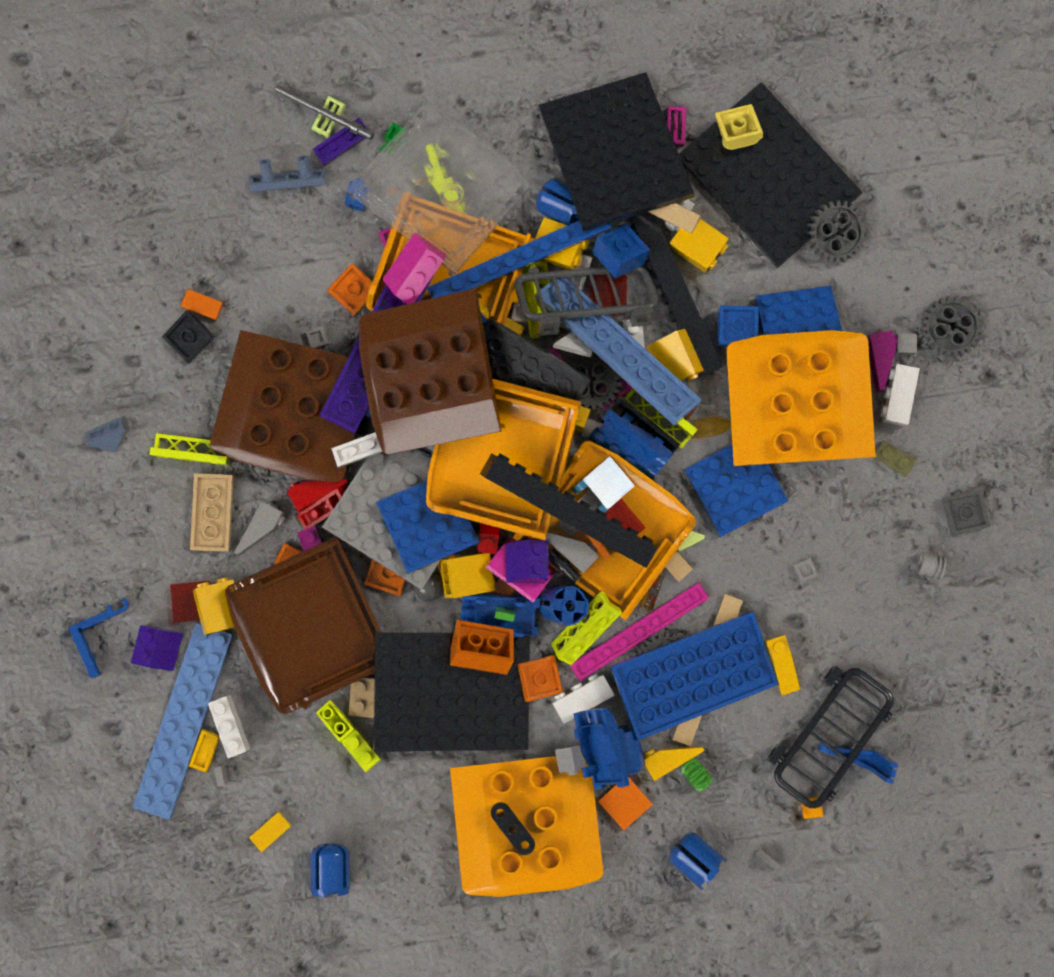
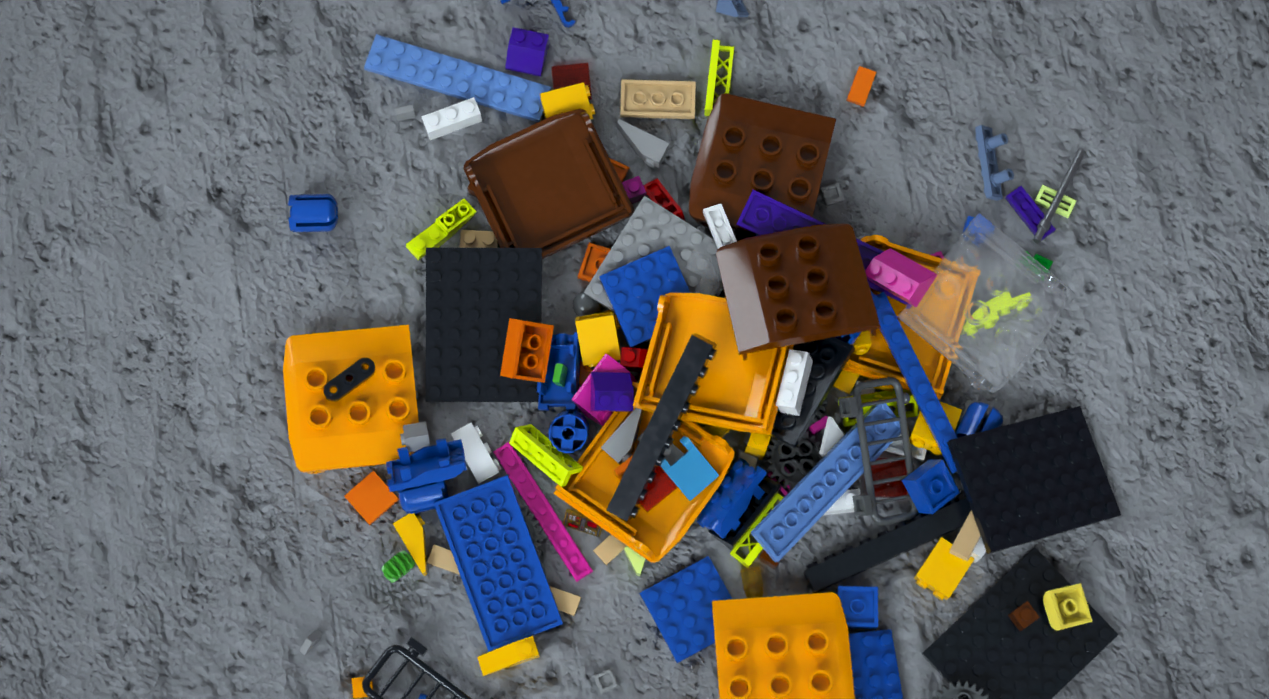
camera: 85 degrees right, 10 degrees down
(188, 336) = (829, 74): black tile -> none
(204, 750) = (428, 97): yellow tile -> none
(270, 831) = (350, 159): yellow tile -> none
(309, 492) = (677, 185): red slope -> none
(351, 289) = (882, 222): orange tile -> none
(526, 377) = (794, 382): none -> white brick
(539, 678) = (496, 411): orange tile -> none
(563, 566) = (607, 429): black pin -> none
(677, 355) = (823, 543): yellow brick -> none
(683, 123) = (1049, 546): dark pink tile -> none
(703, 853) = (313, 566): blue cylinder -> none
(747, 168) = (1023, 616): none -> reddish brown brick

